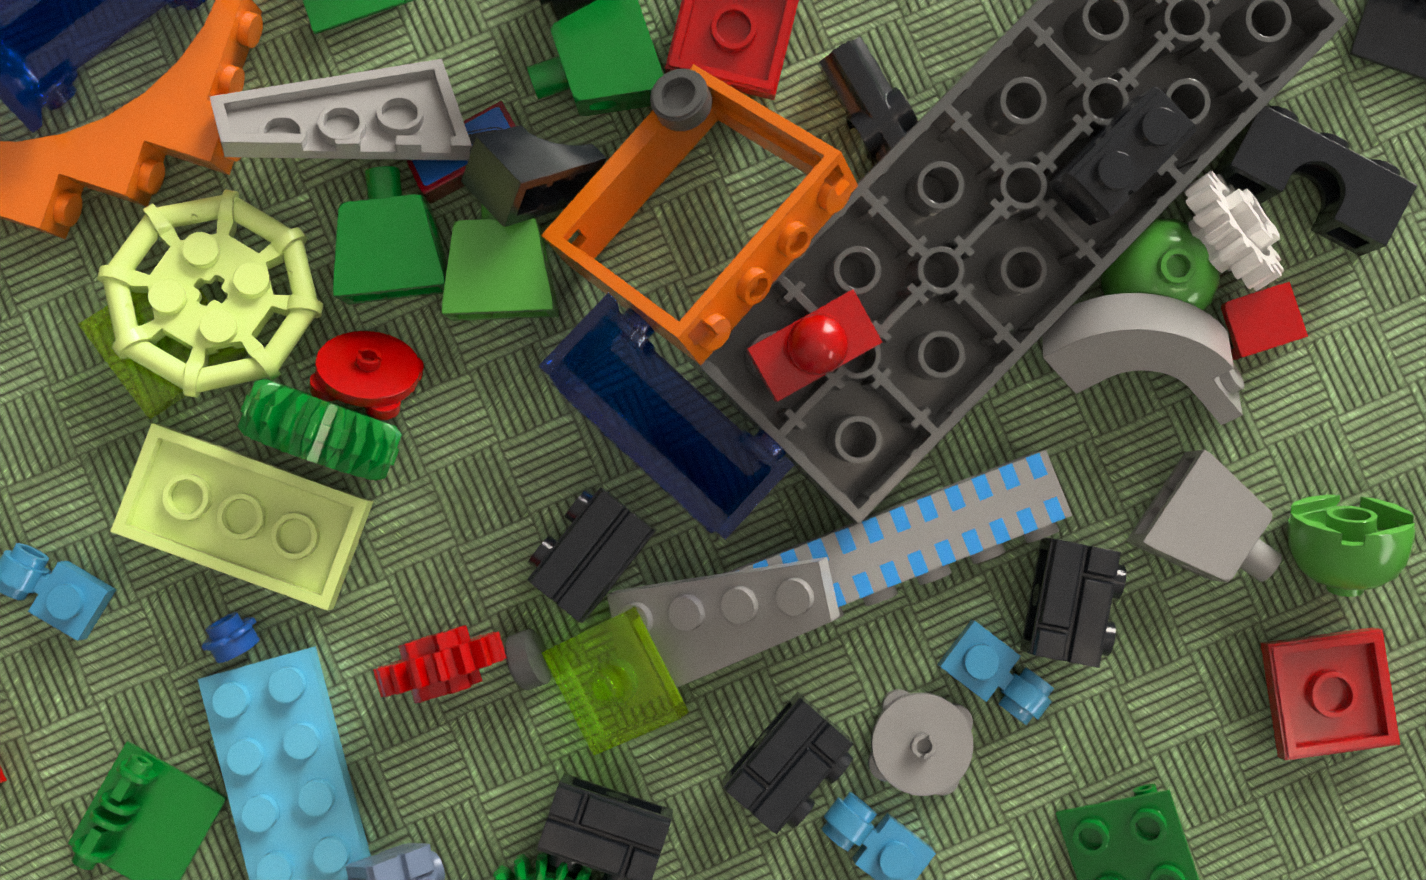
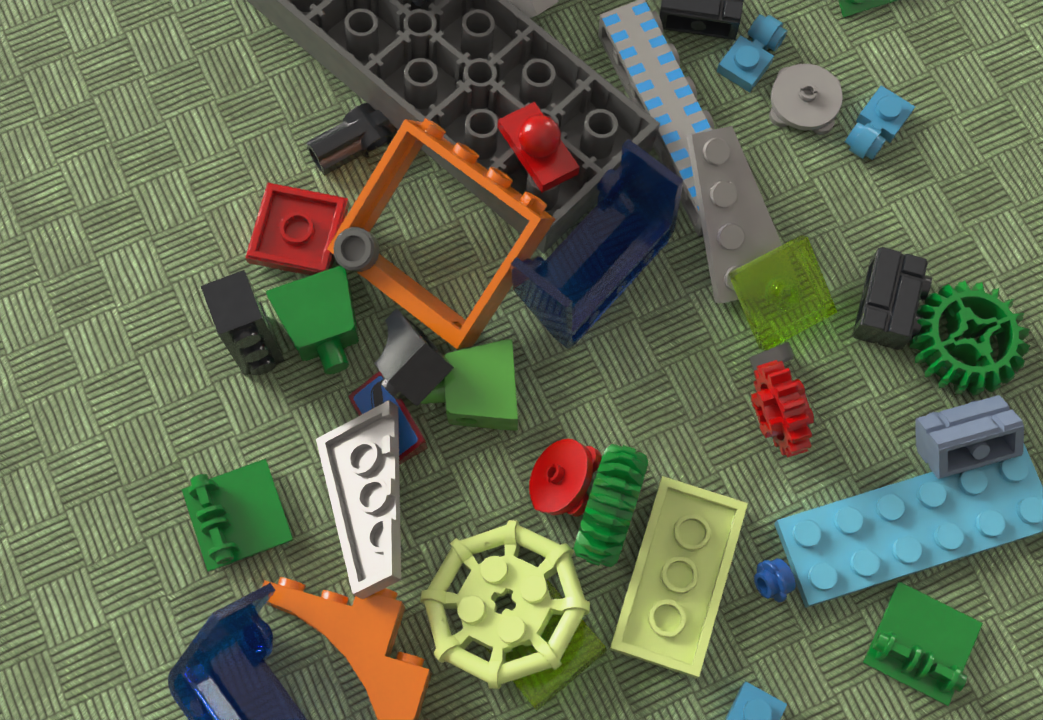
camera: 90 degrees left, 15 degrees down
(387, 244) = (462, 469): green torso -> none
(590, 553) = (689, 315): black brick -> none
(789, 764) = (829, 178): black brick -> none

